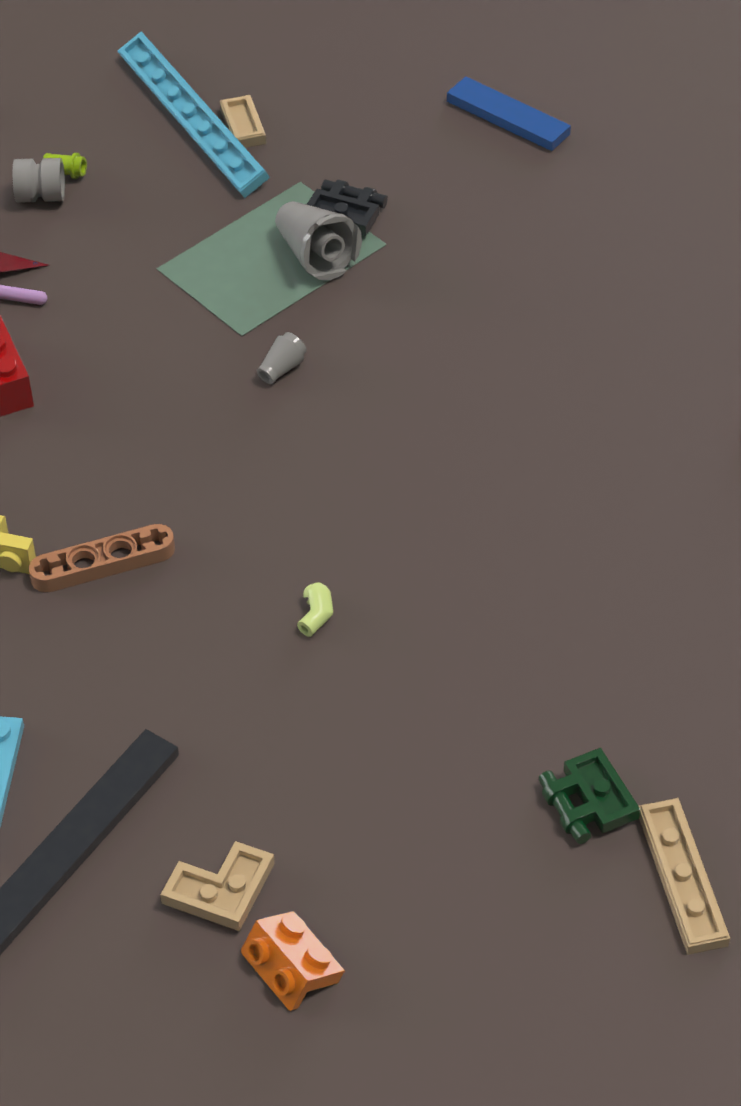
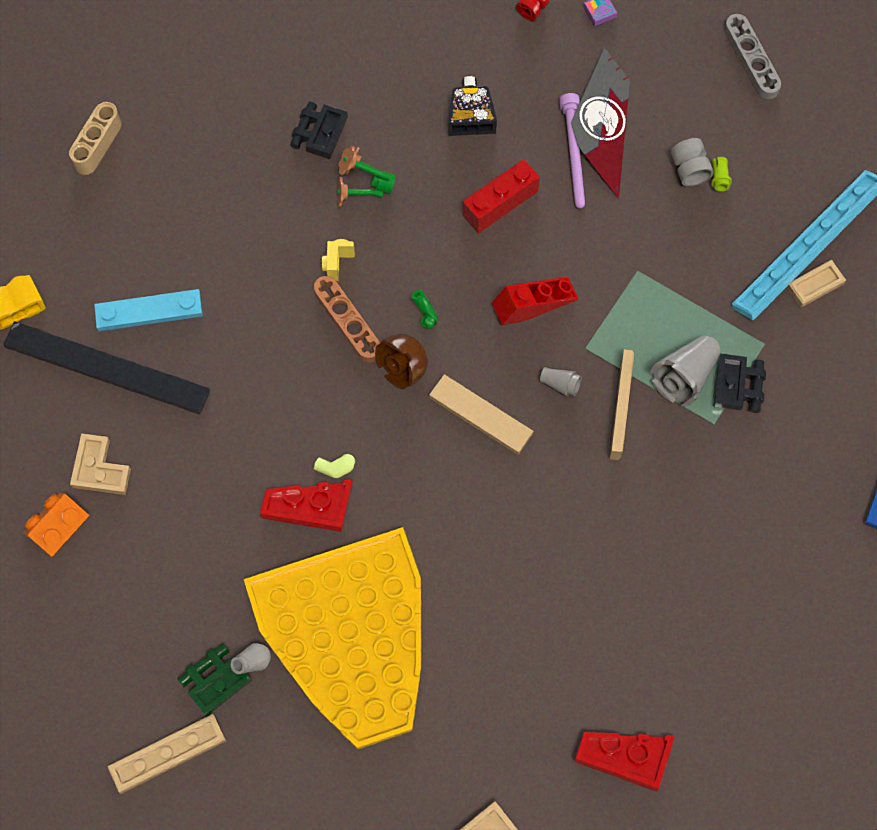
camera: 75 degrees right, 20 degrees up
(127, 470) = (429, 317): none -> green arm
(159, 363) = (532, 299): none -> red slope
(195, 500) = (402, 359): none -> reddish brown cylinder
(295, 447) = (481, 414): none -> tan tile
(336, 308) = (622, 405): none -> tan tile
(365, 644) = (310, 506): none -> red wing
(560, 637) = (349, 633): none -> yellow wing
(572, 738) = (252, 659): none -> light grey cone

